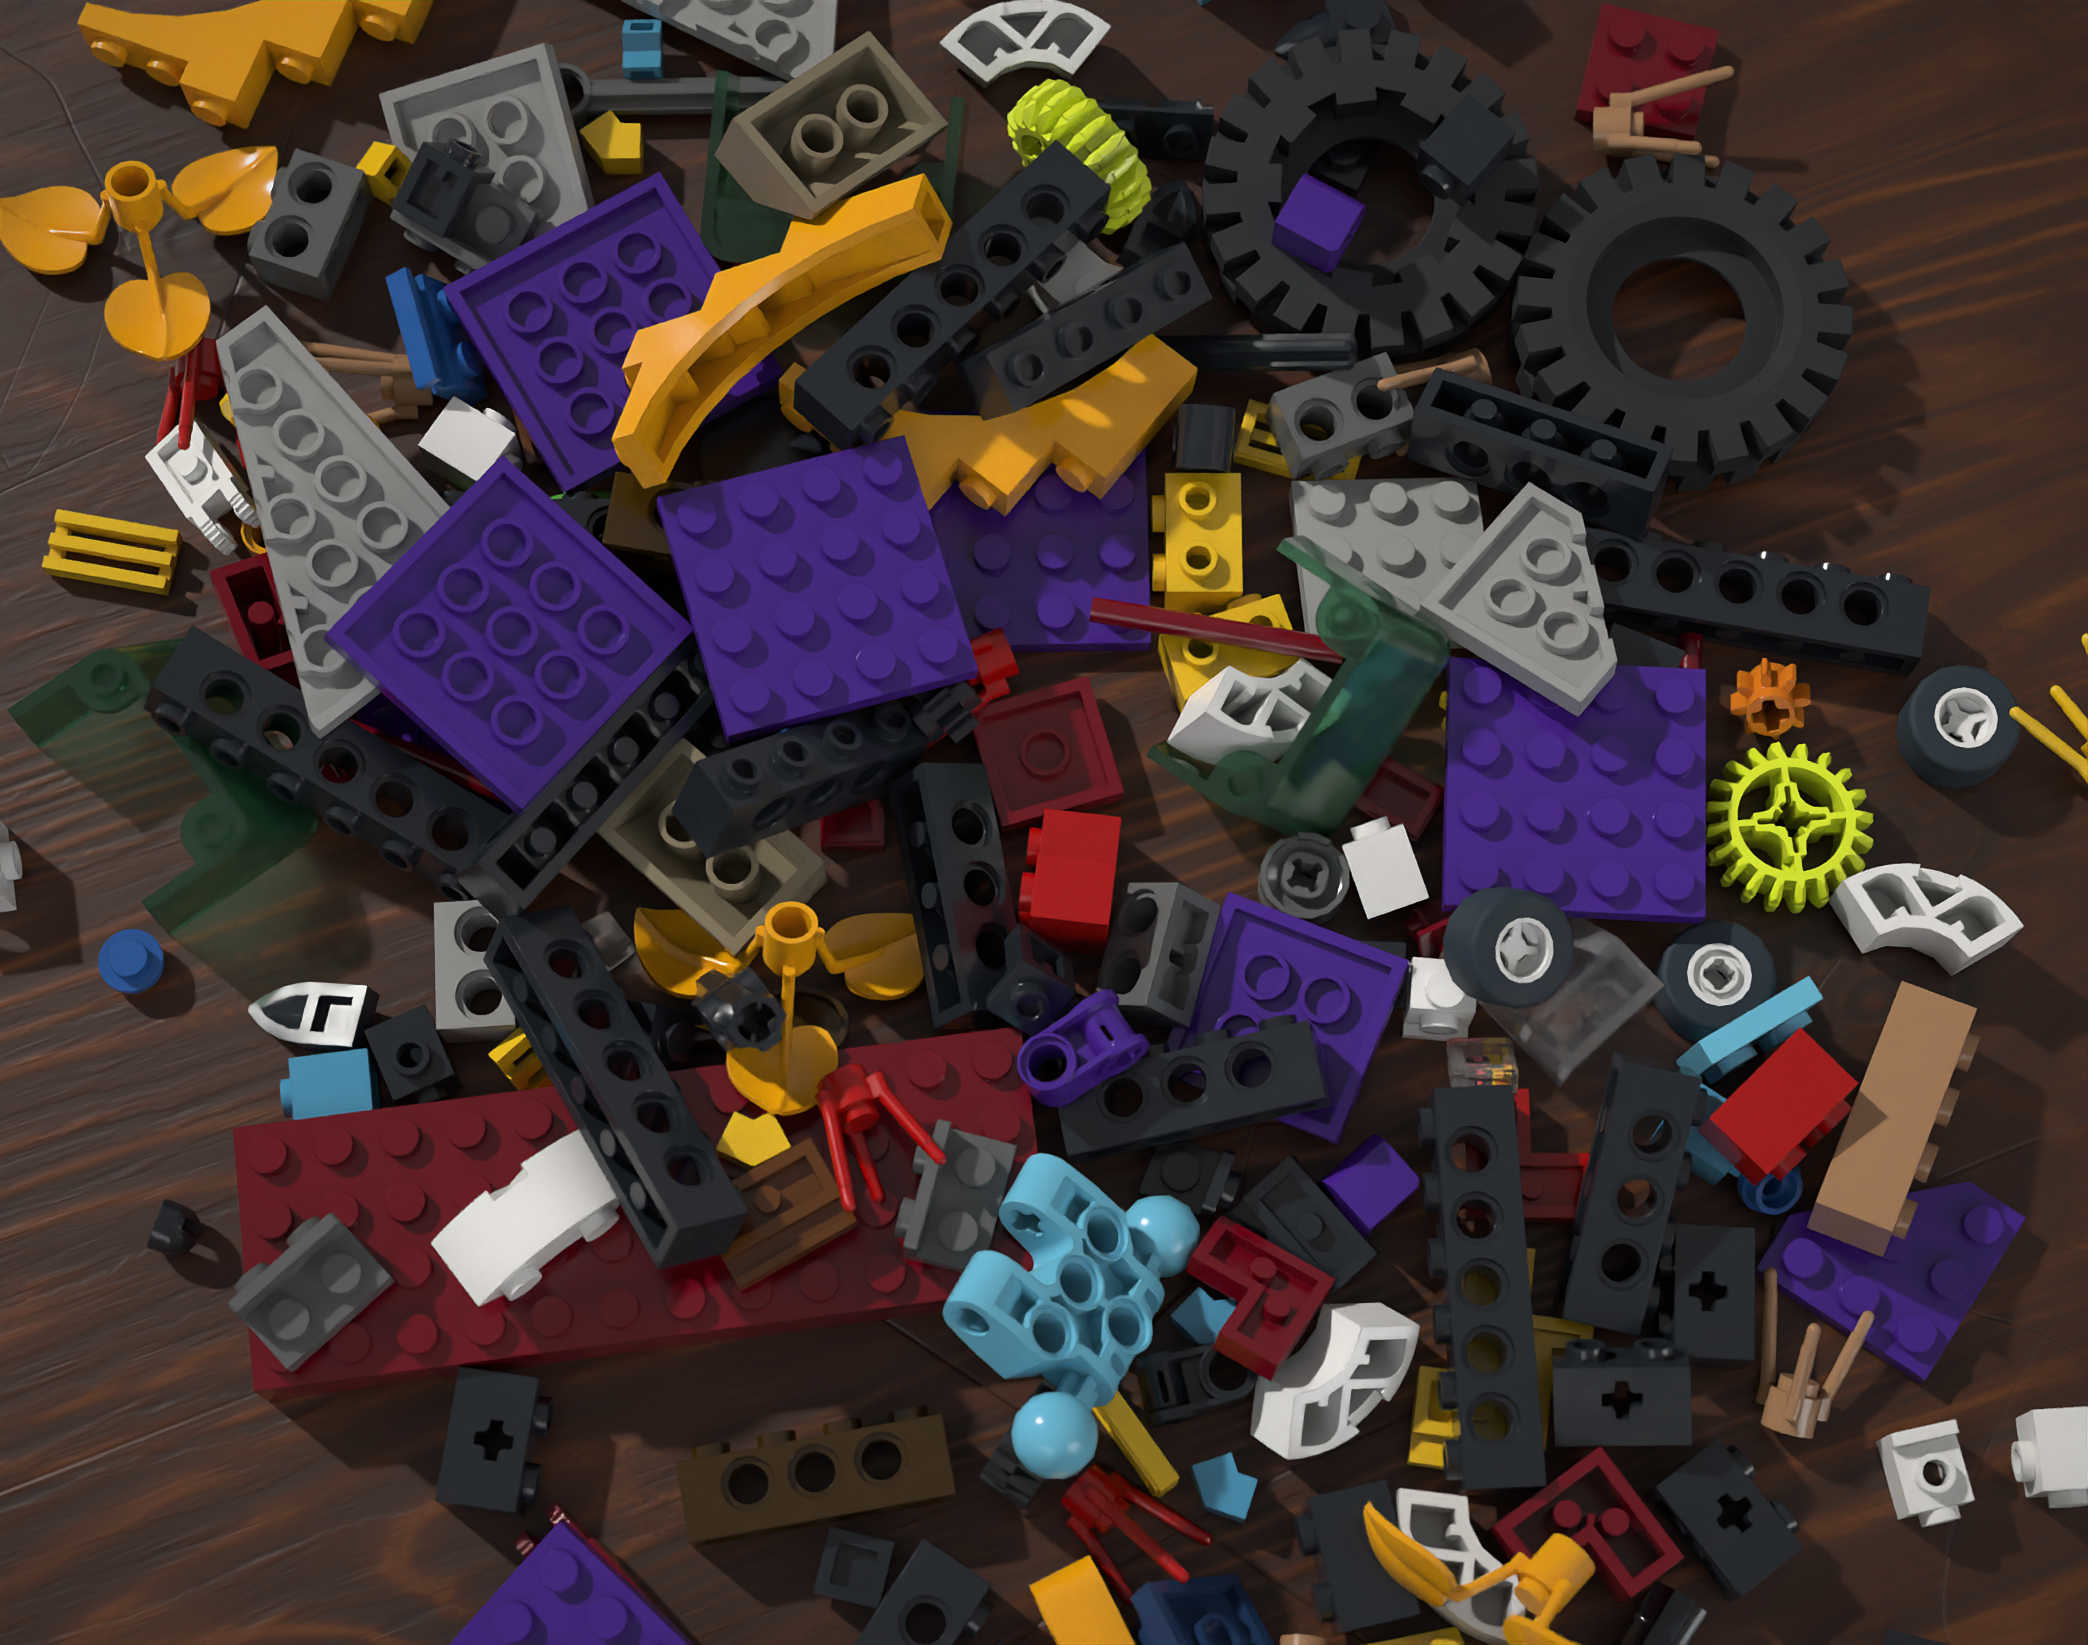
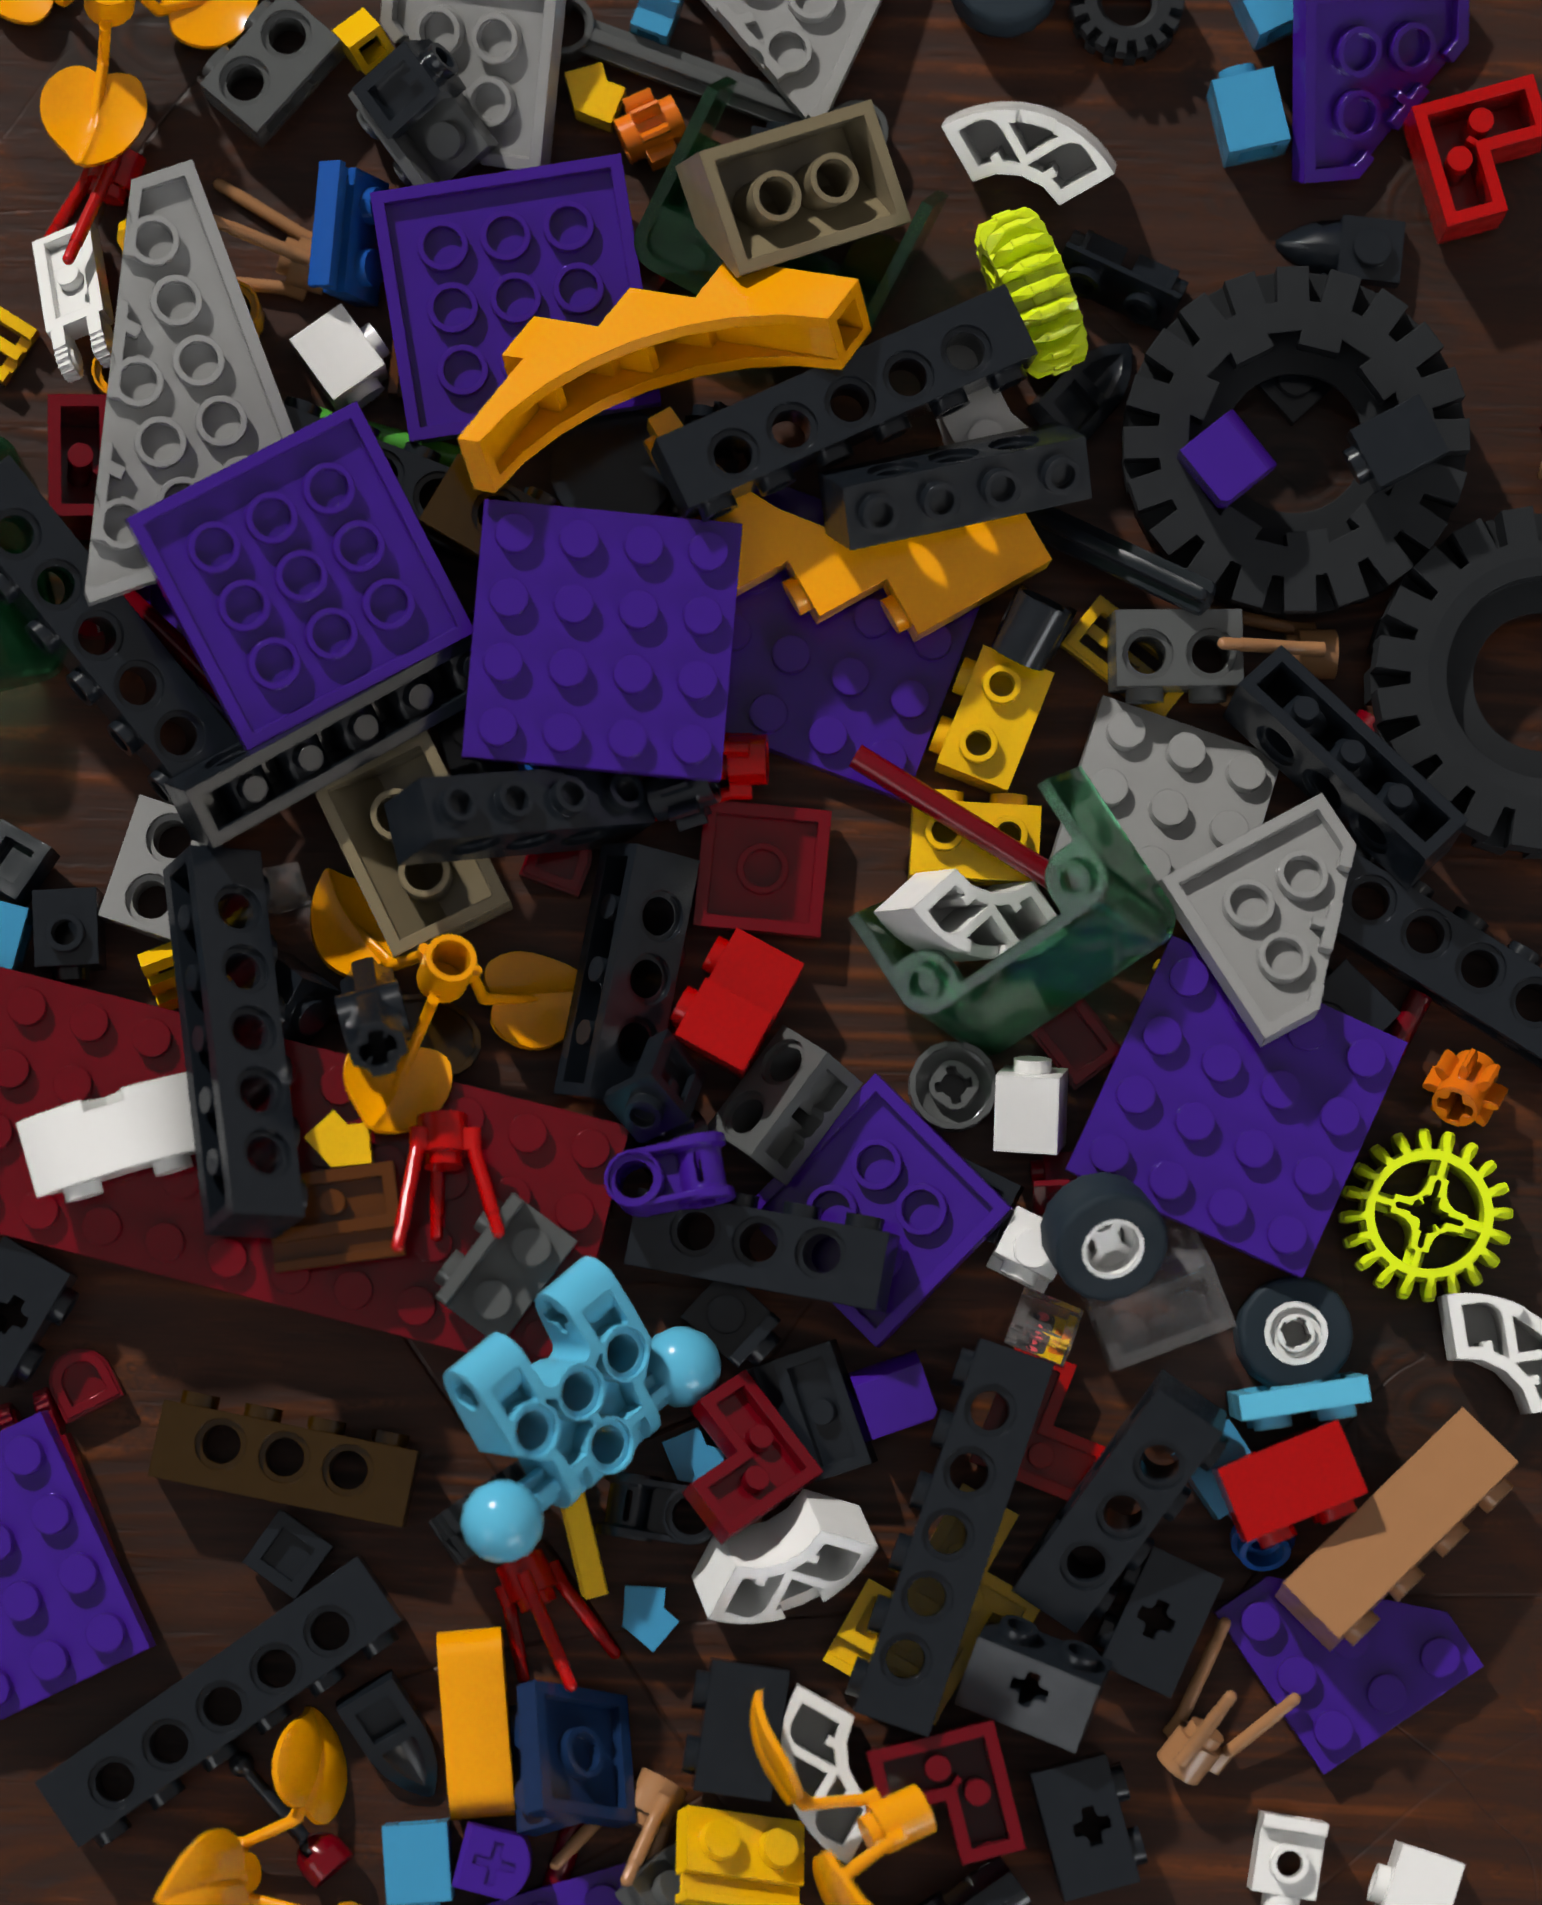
camera: 20 degrees right, 10 degrees up
(590, 1485) = (83, 1383): none -> dark red tile
(676, 149) = (649, 128): none -> orange gear

